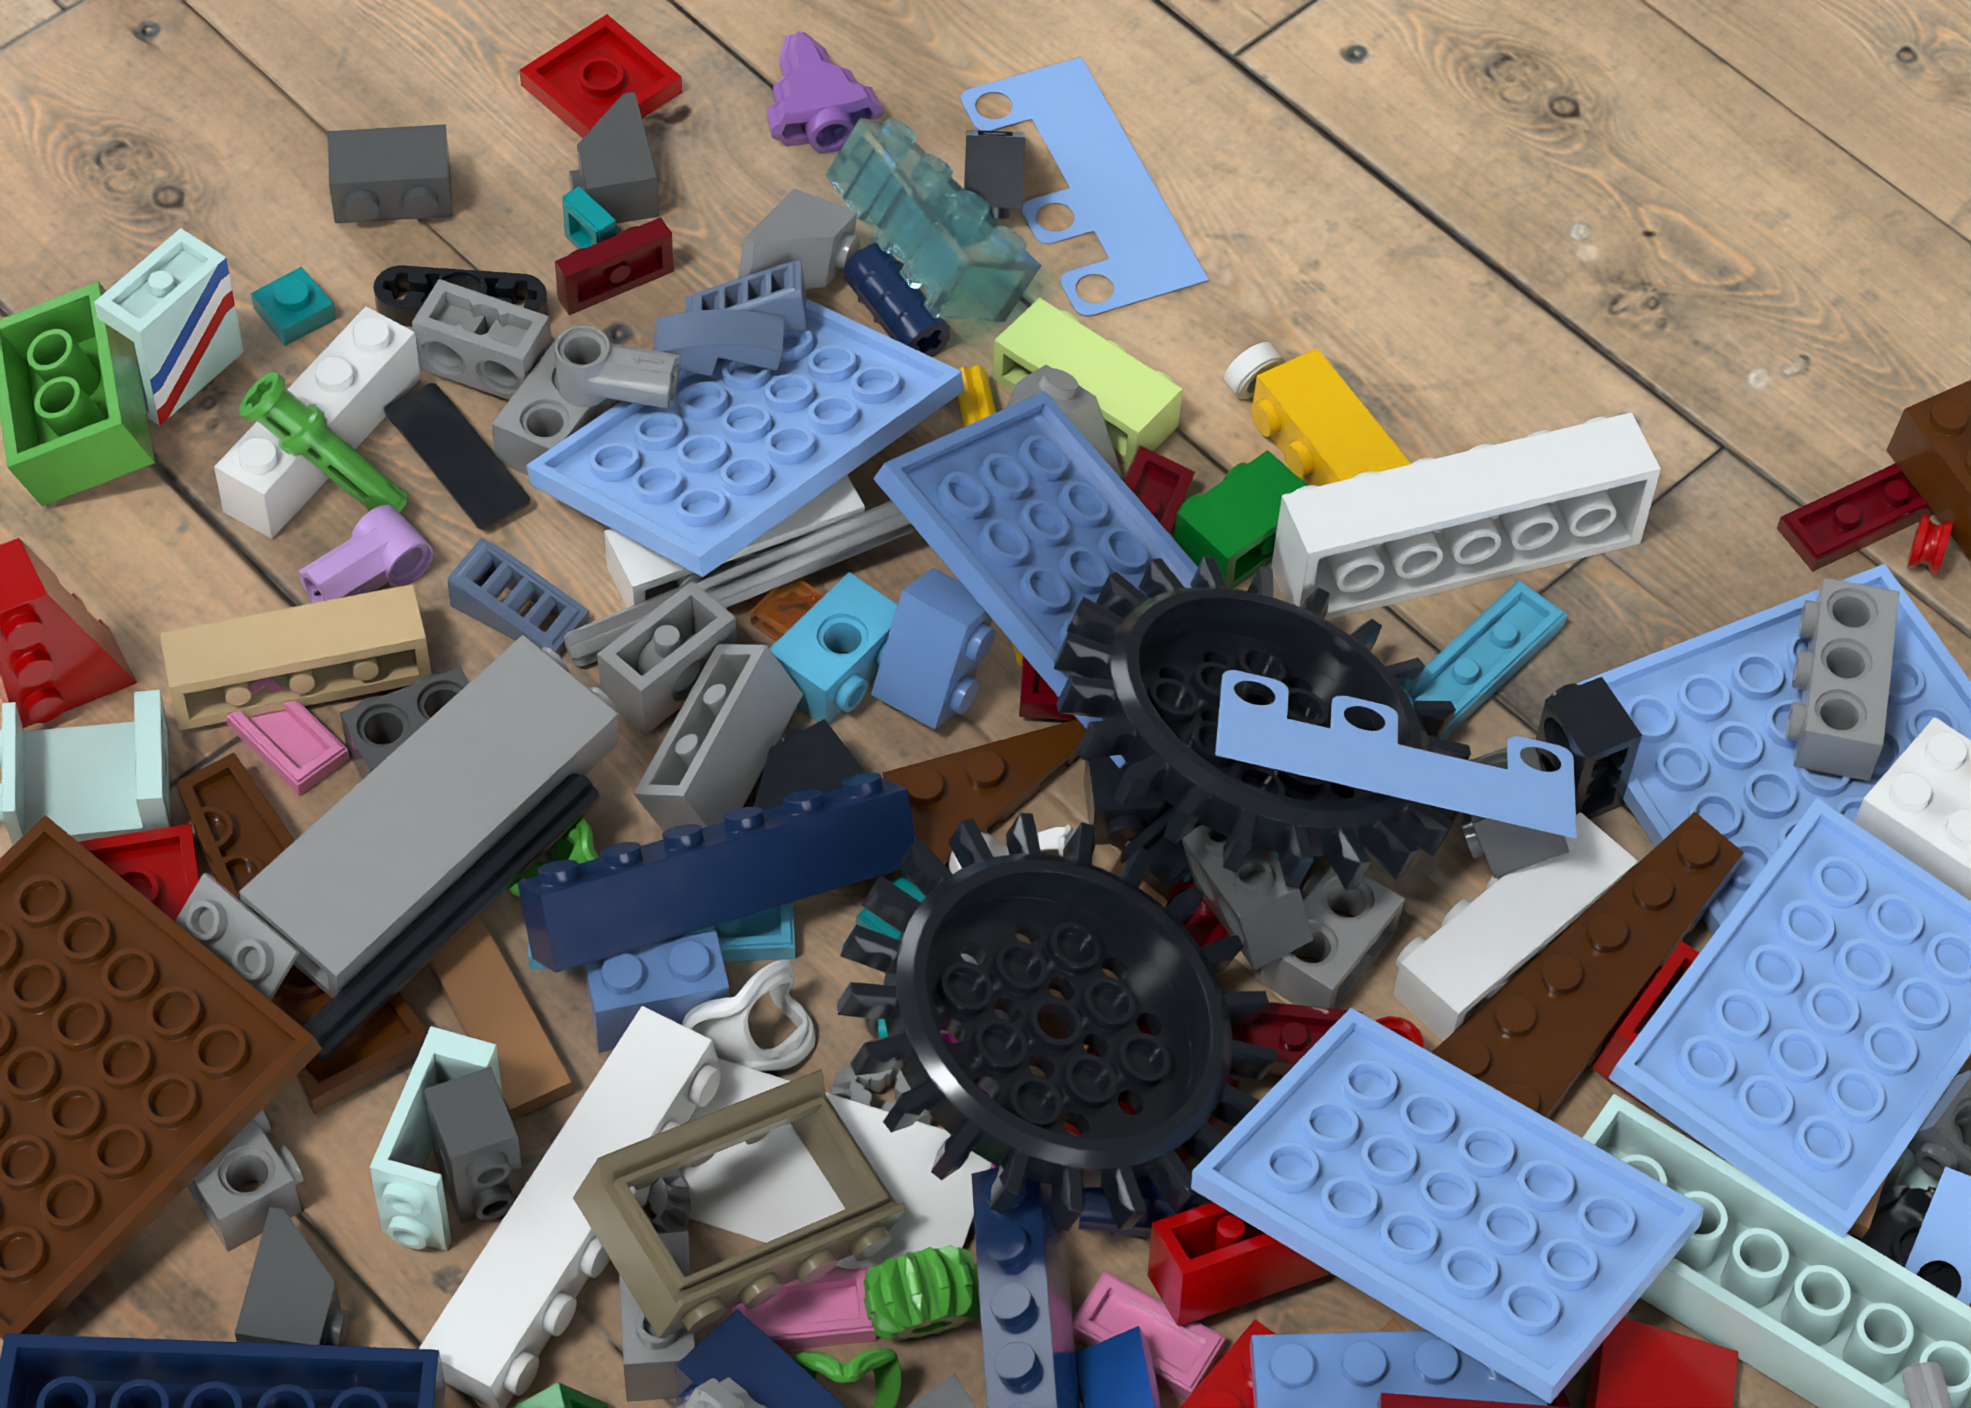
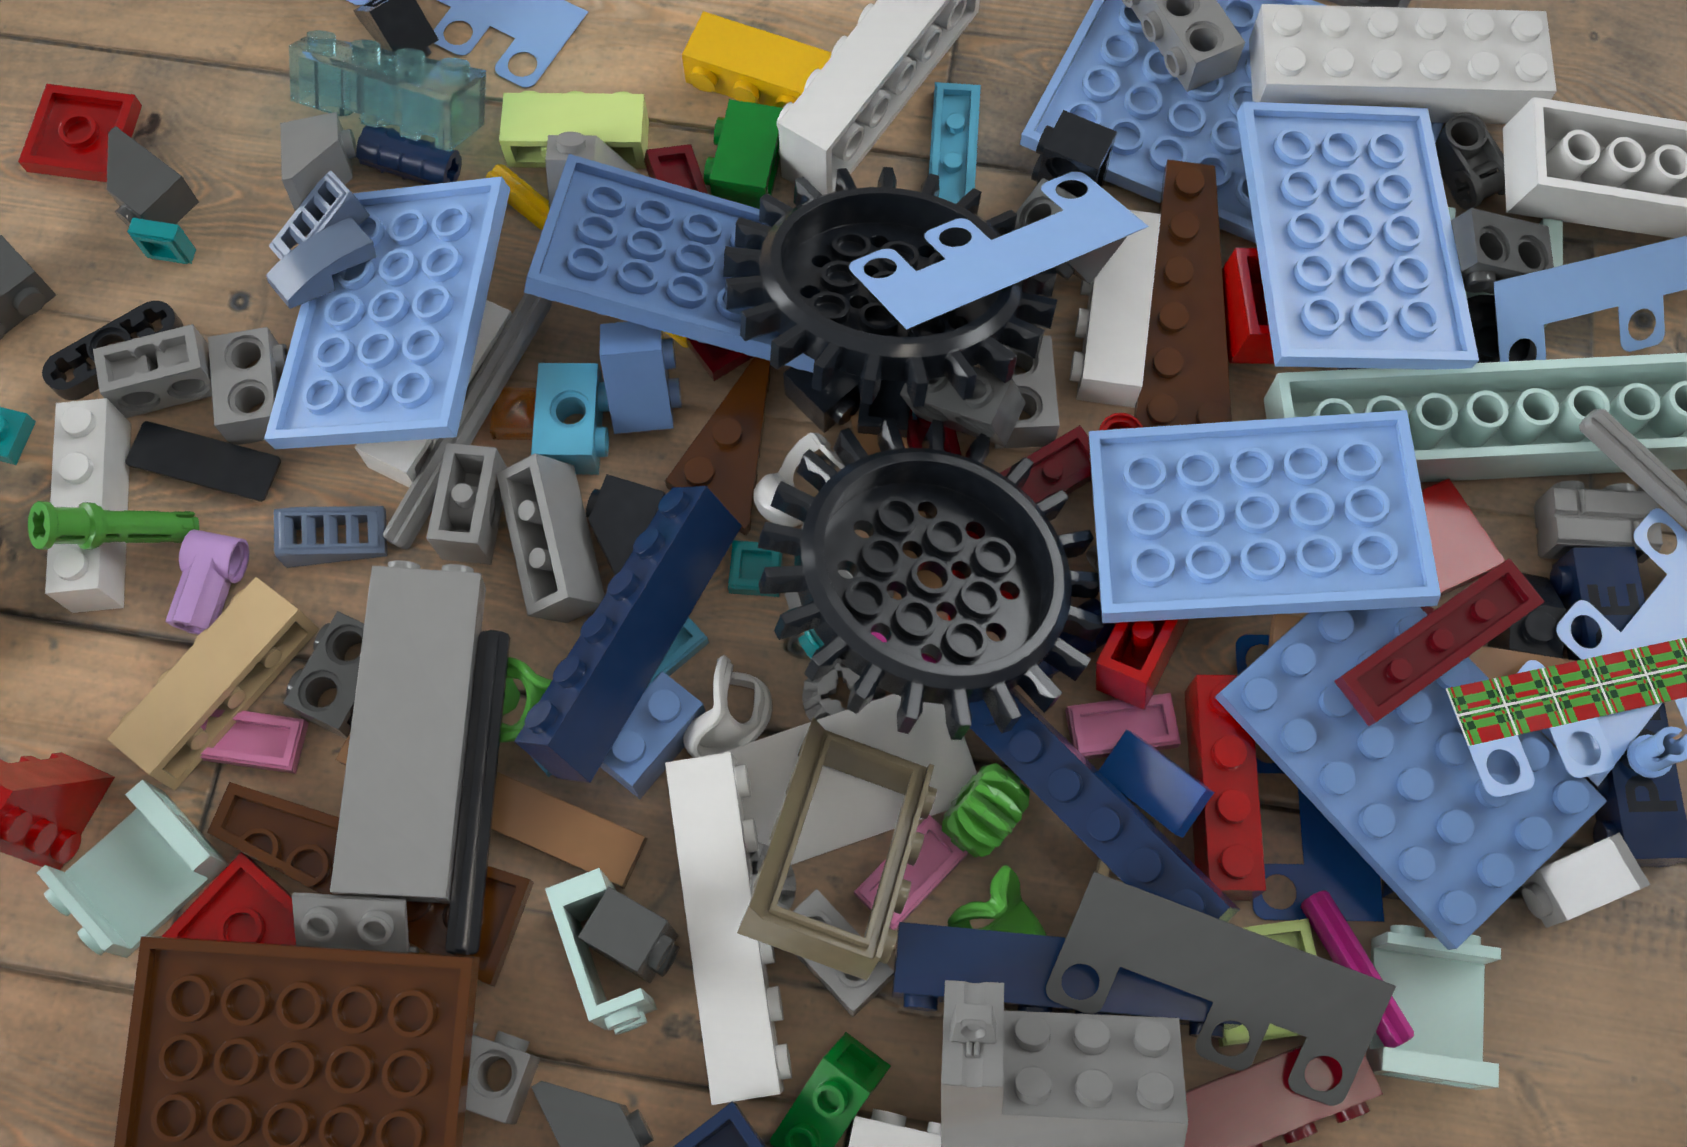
camera: 35 degrees left, 15 degrees up
(595, 370) = (272, 333): light grey piece -> none
(614, 266) = (200, 256): dark red plate -> none
(817, 98) = (239, 51): medium lavender rock -> none
(1244, 369) = (670, 52): white tile -> none

